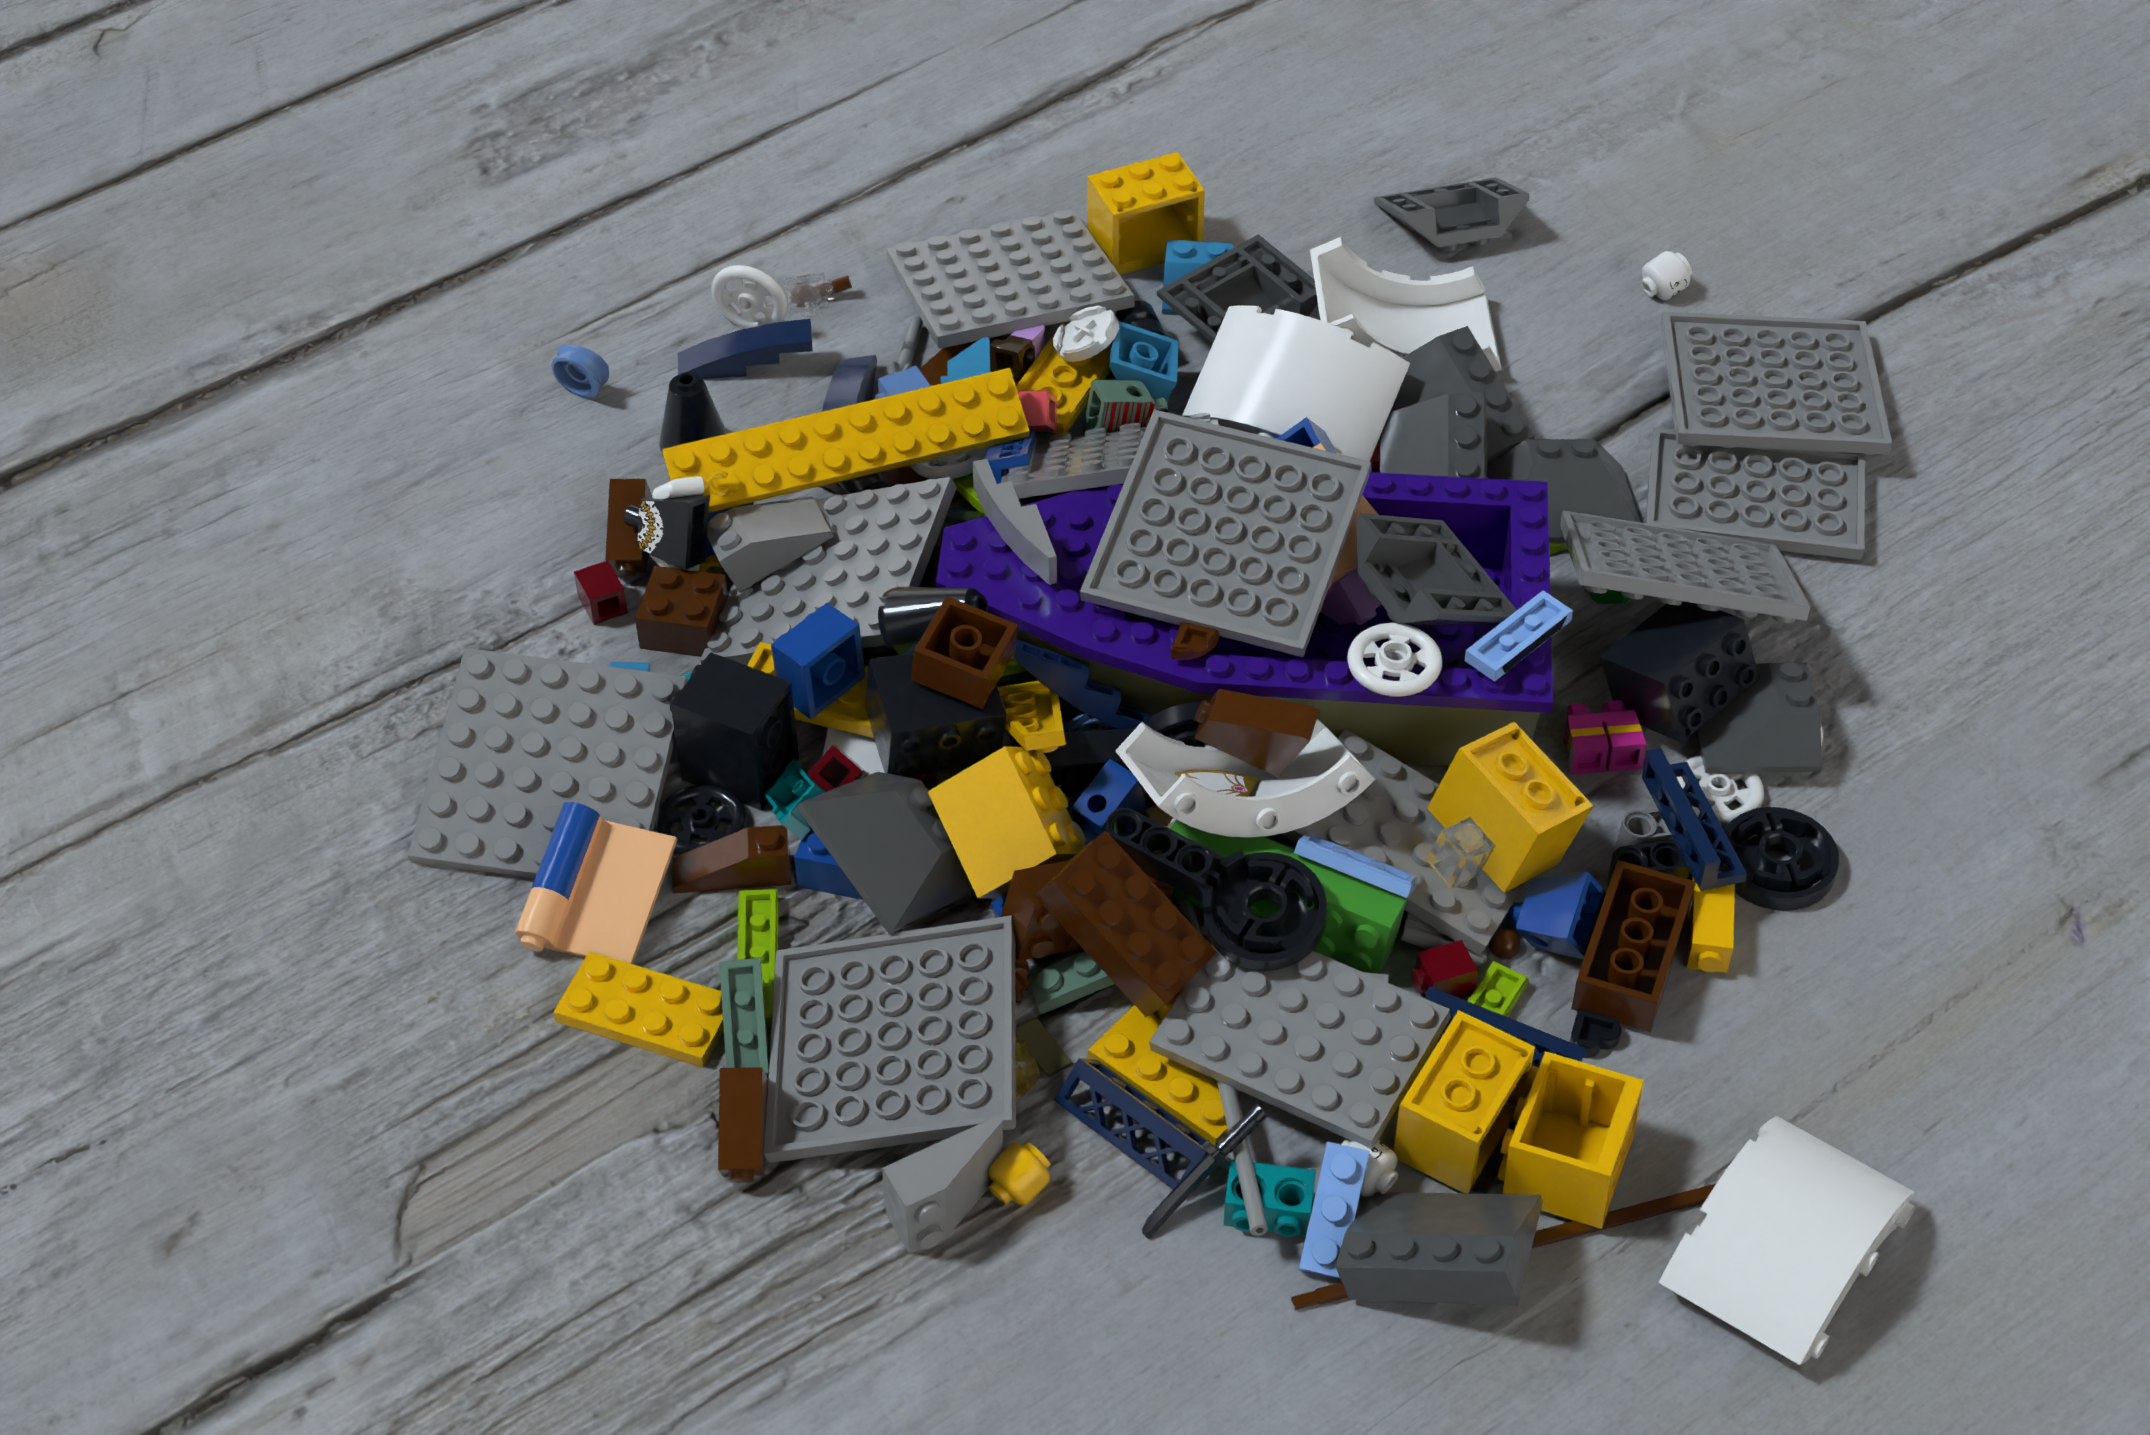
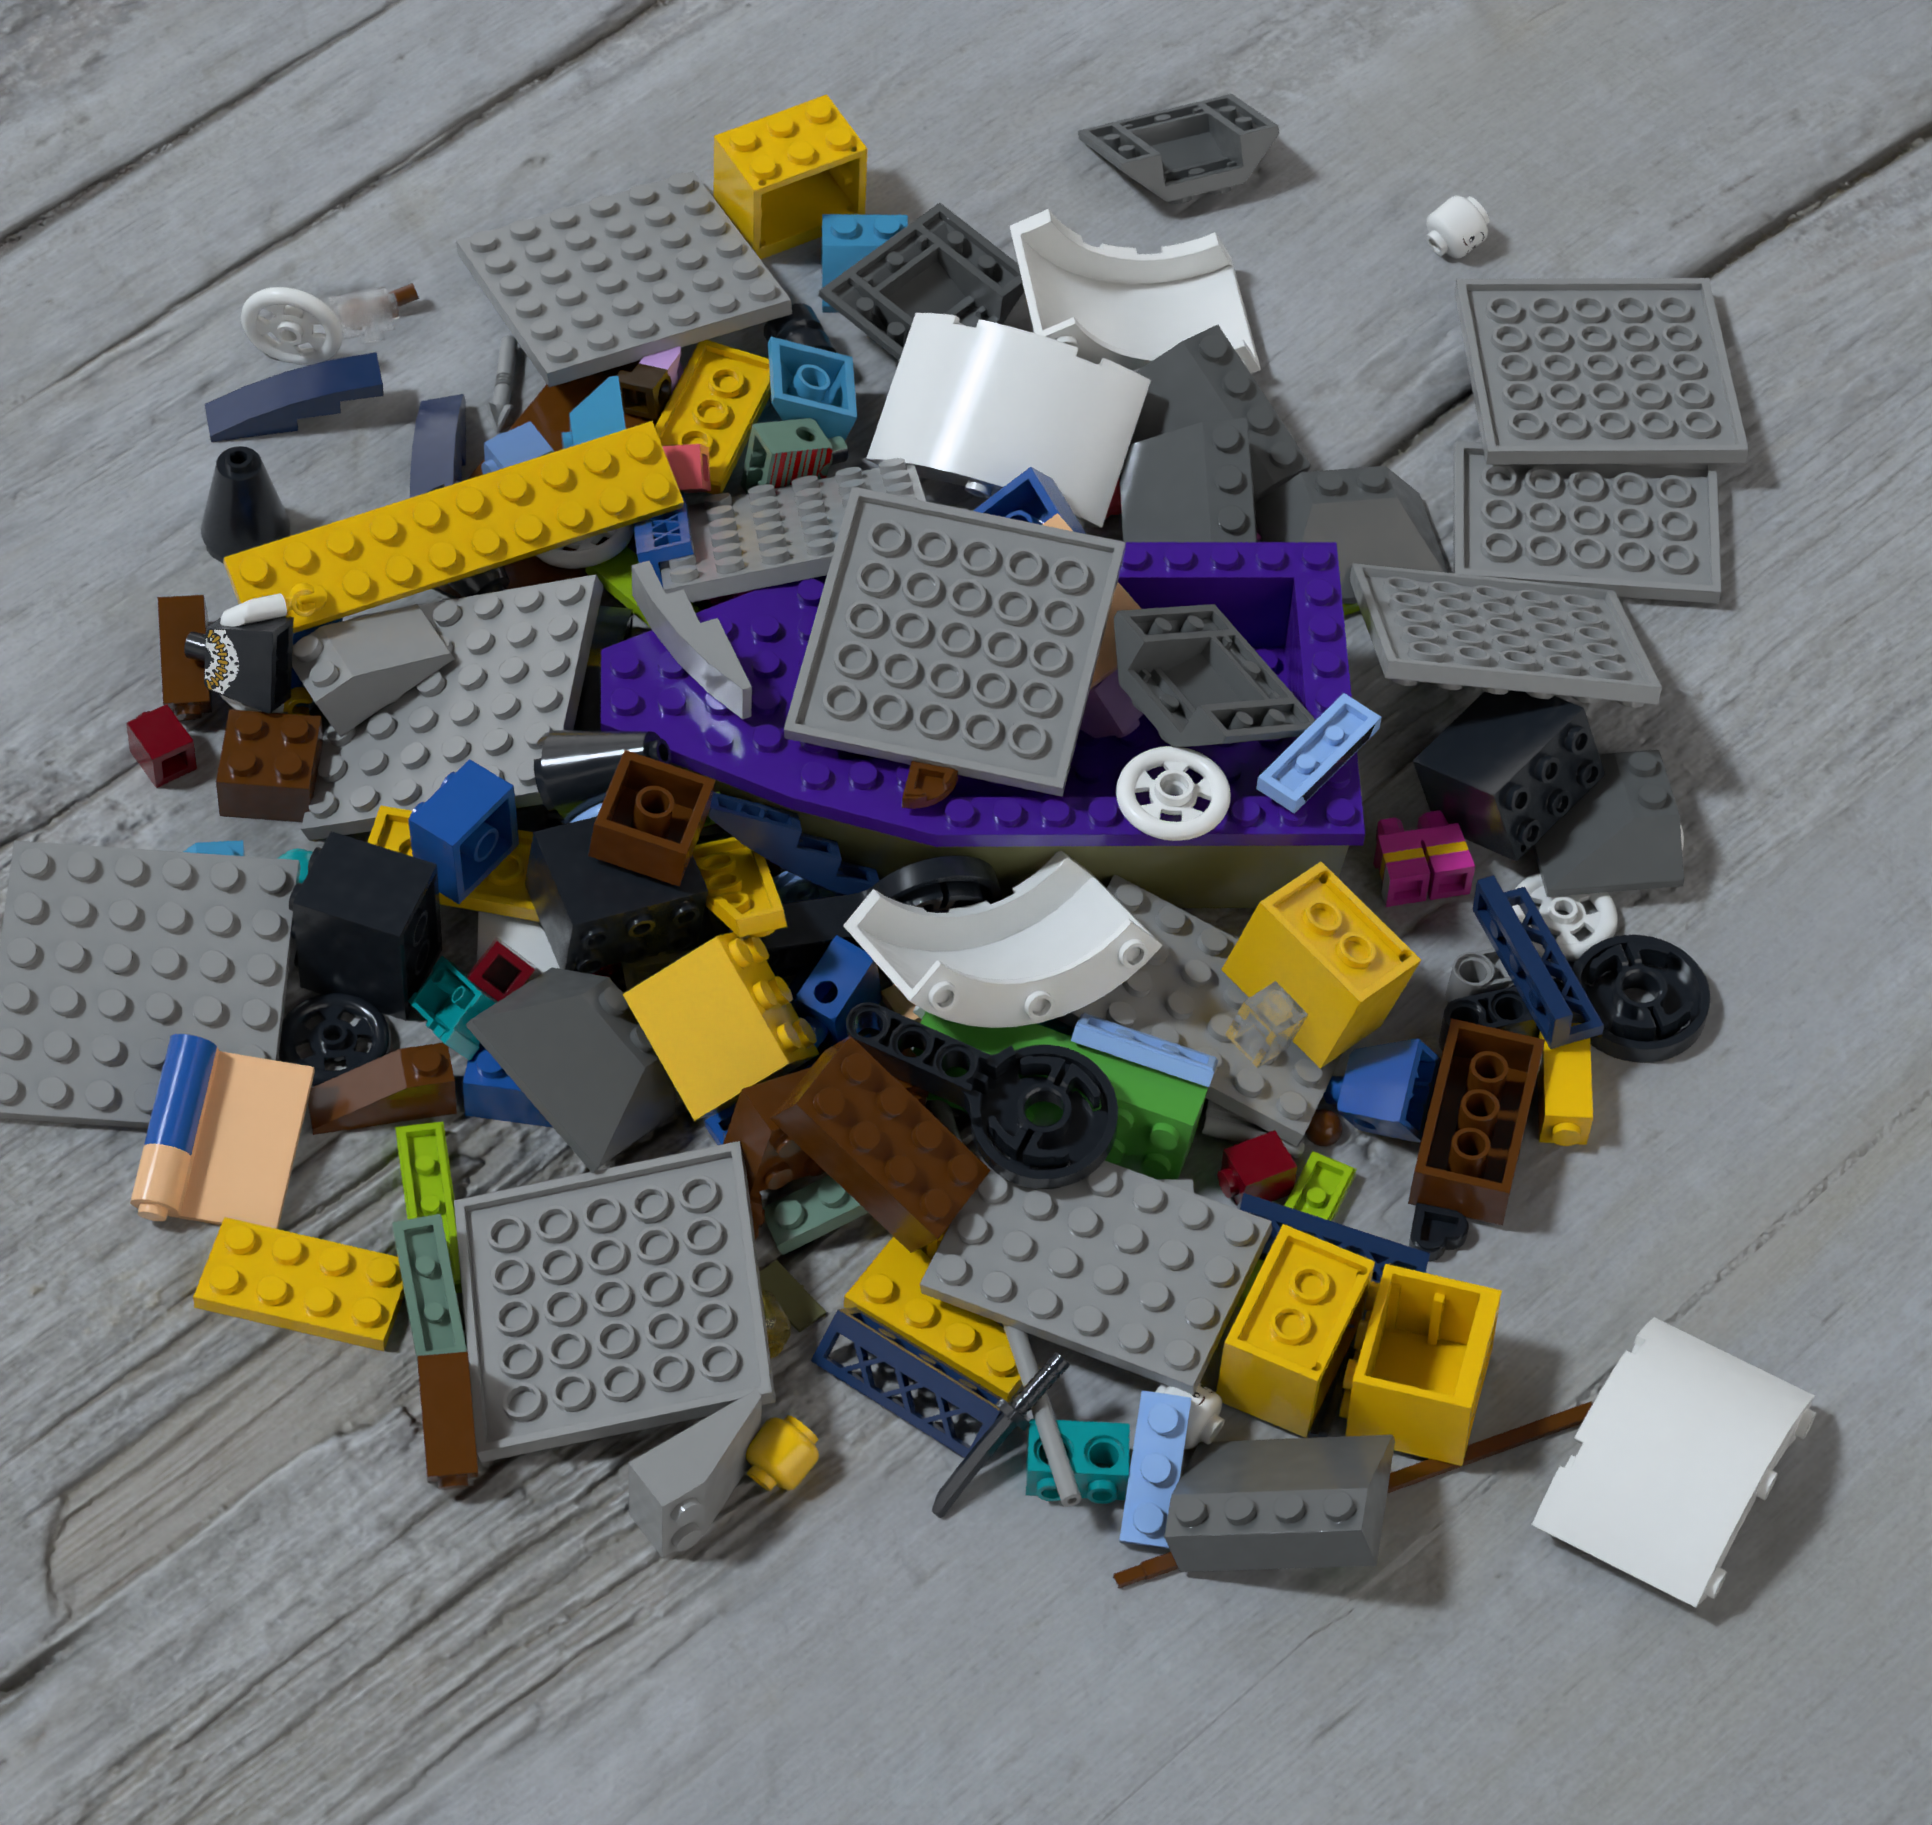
camera: 10 degrees left, 5 degrees up
(580, 370) = (85, 440): medium blue piece -> none
(1086, 334) = (736, 357): white tile -> none
(1223, 781) = (972, 956): sticker -> none
(1256, 728) = (1013, 889): reddish brown slope -> none

